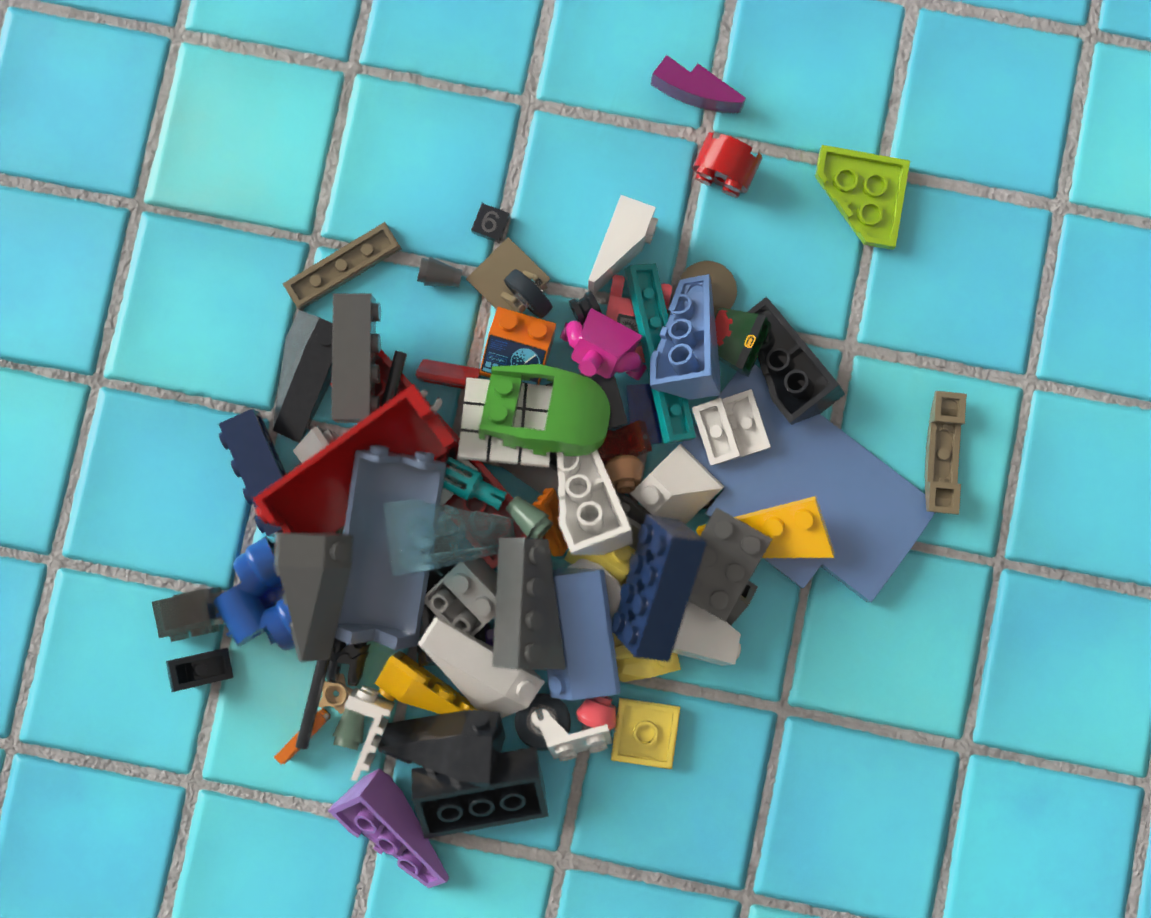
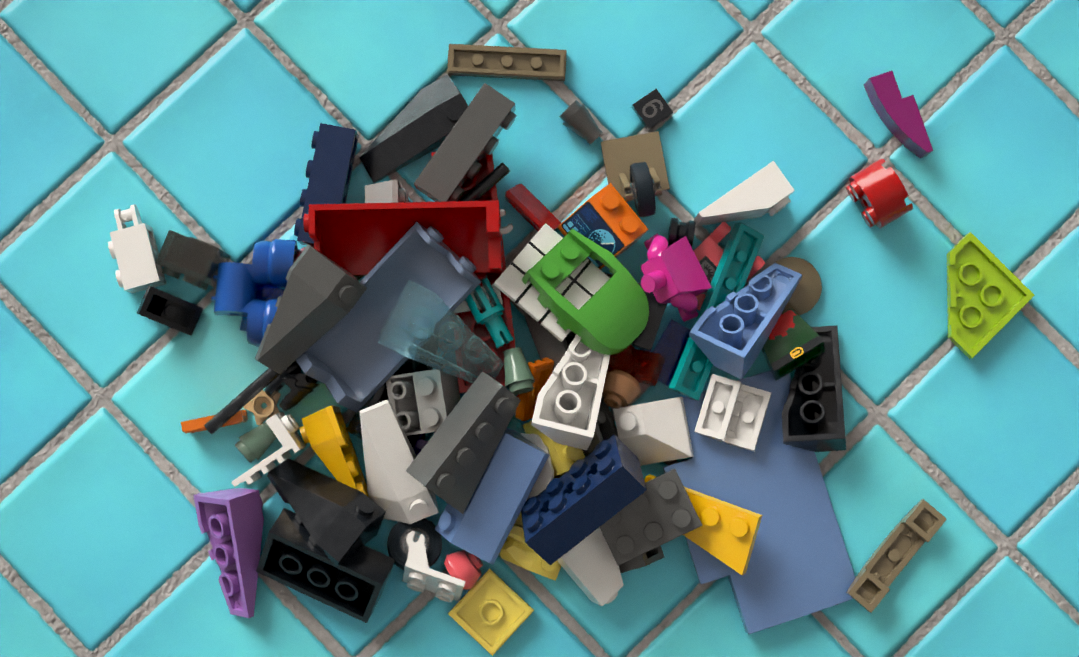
camera: 30 degrees right, 0 degrees up
(136, 641) = (135, 252): none -> white brick

